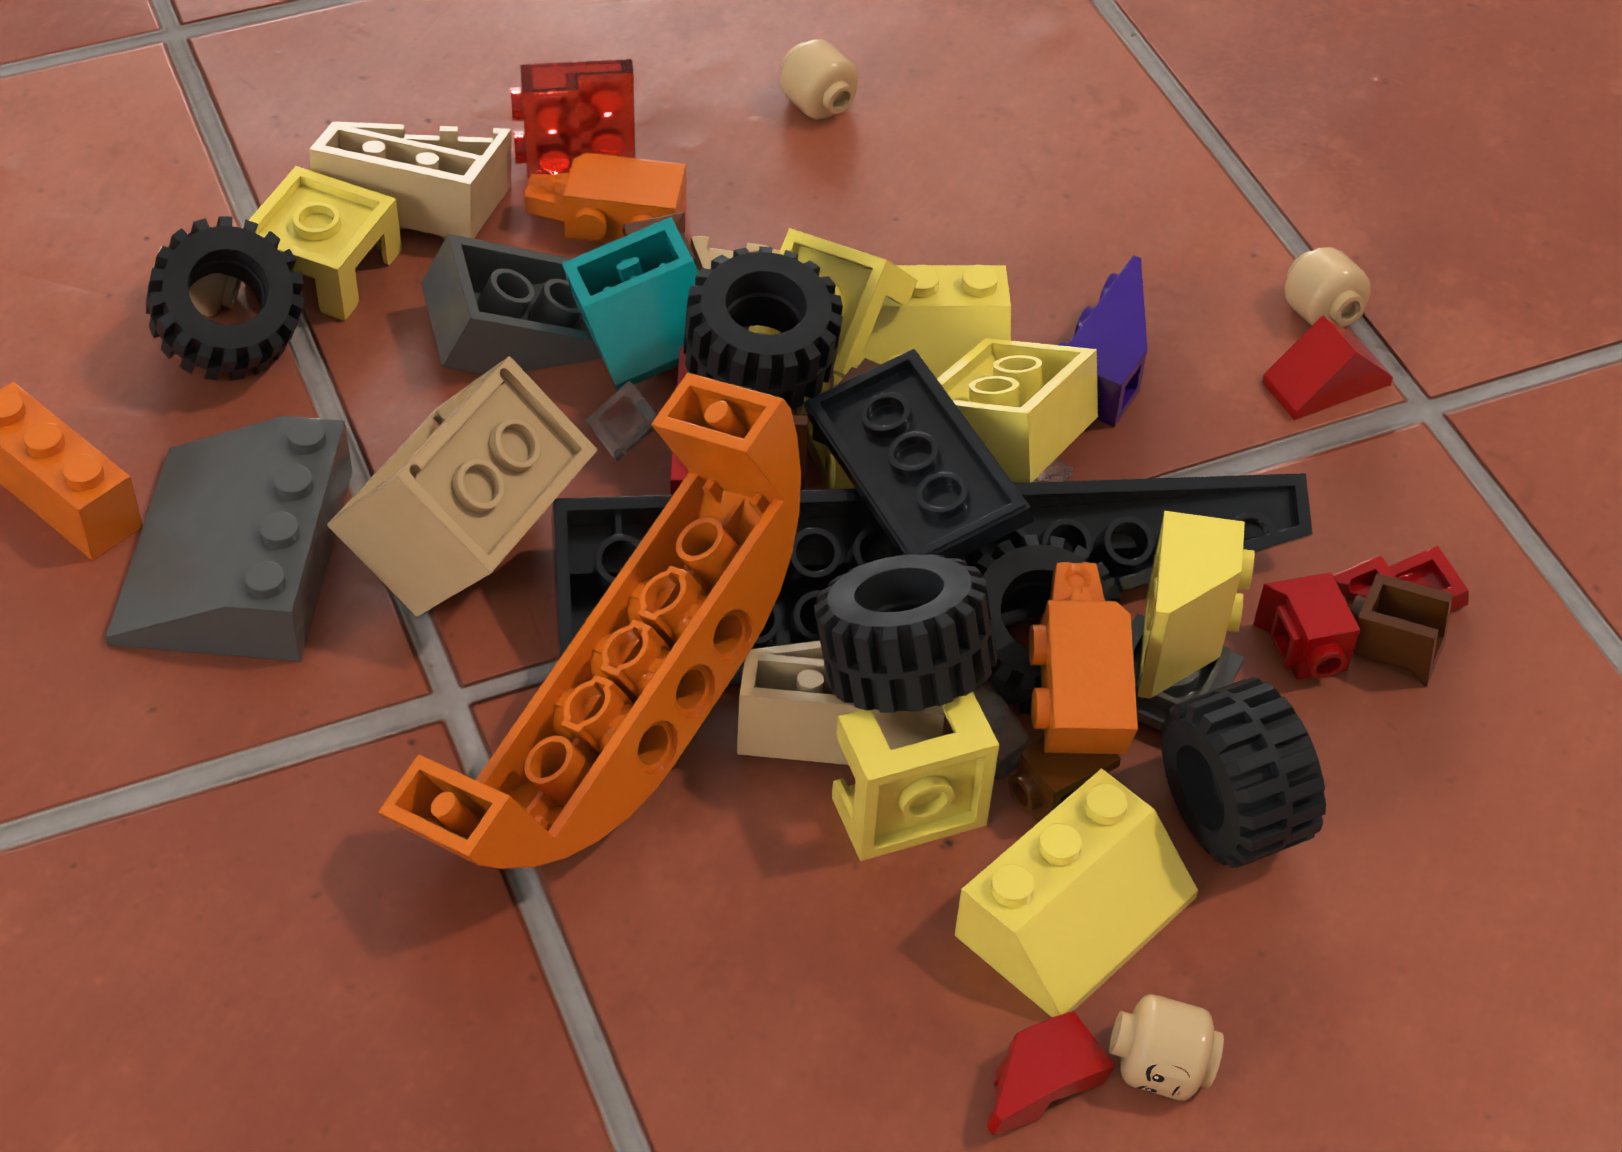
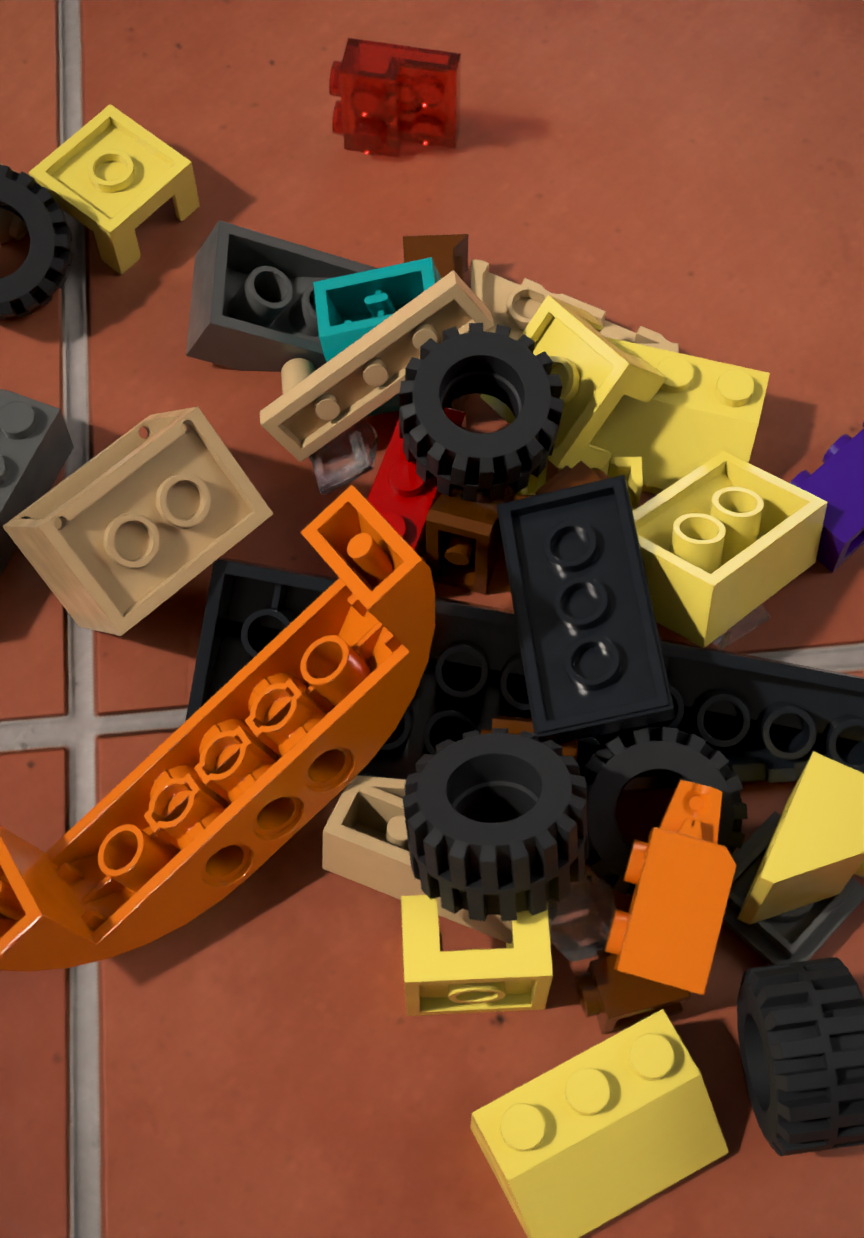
camera: 20 degrees right, 15 degrees up
(437, 181) = (236, 139): tan wedge -> none
(607, 193) = (409, 194): orange hinge -> none
(634, 332) = (368, 372): none -> tan piece
(818, 79) = (661, 95): tan head -> none

